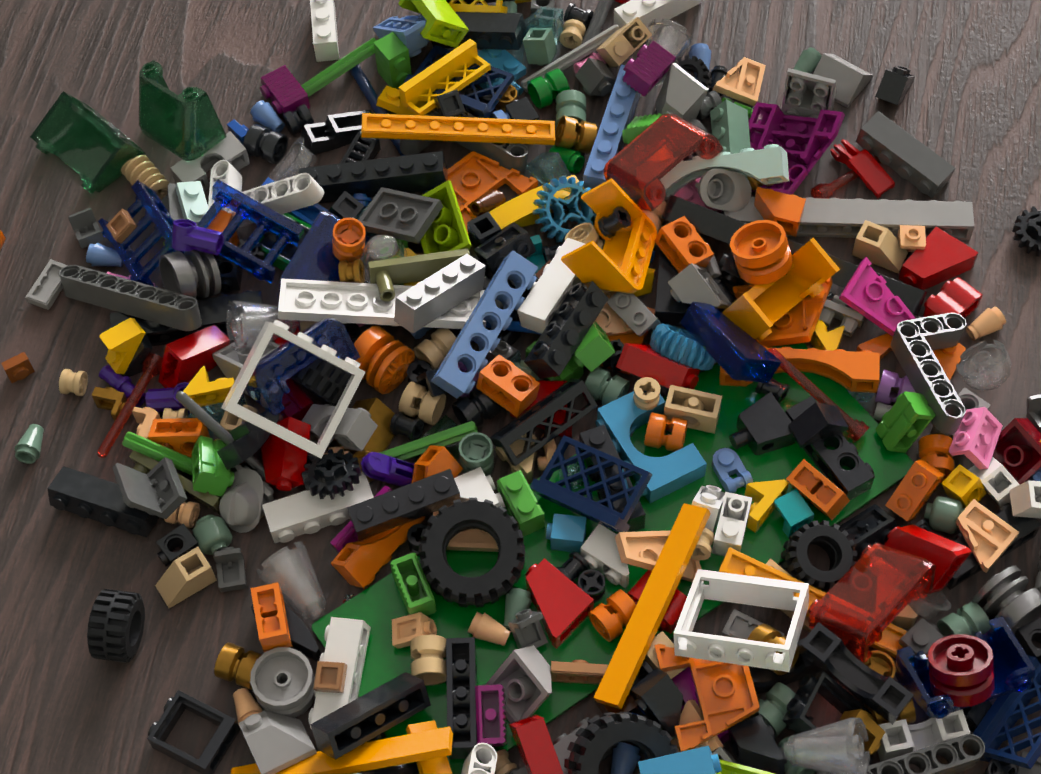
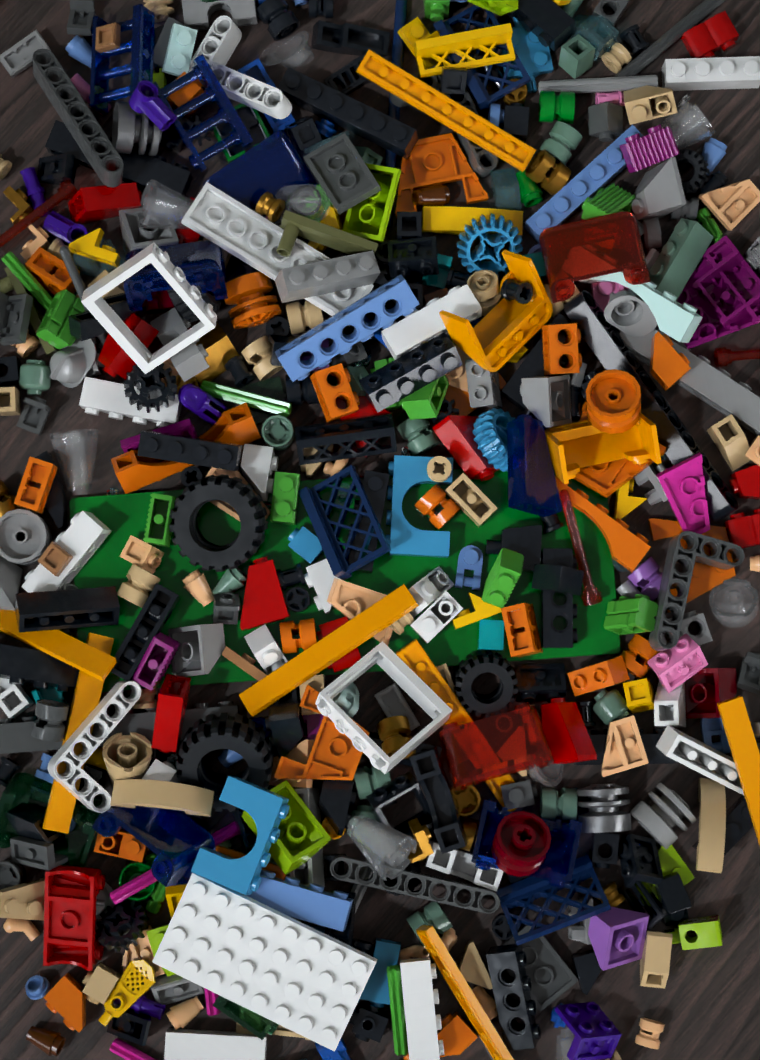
camera: 30 degrees right, 25 degrees up
(122, 344) = (49, 159): yellow slope -> none
(348, 239) = (282, 177): orange wheel -> none
(590, 643) = (266, 649): none -> white slope
(769, 451) = (503, 577): none -> bright green brick

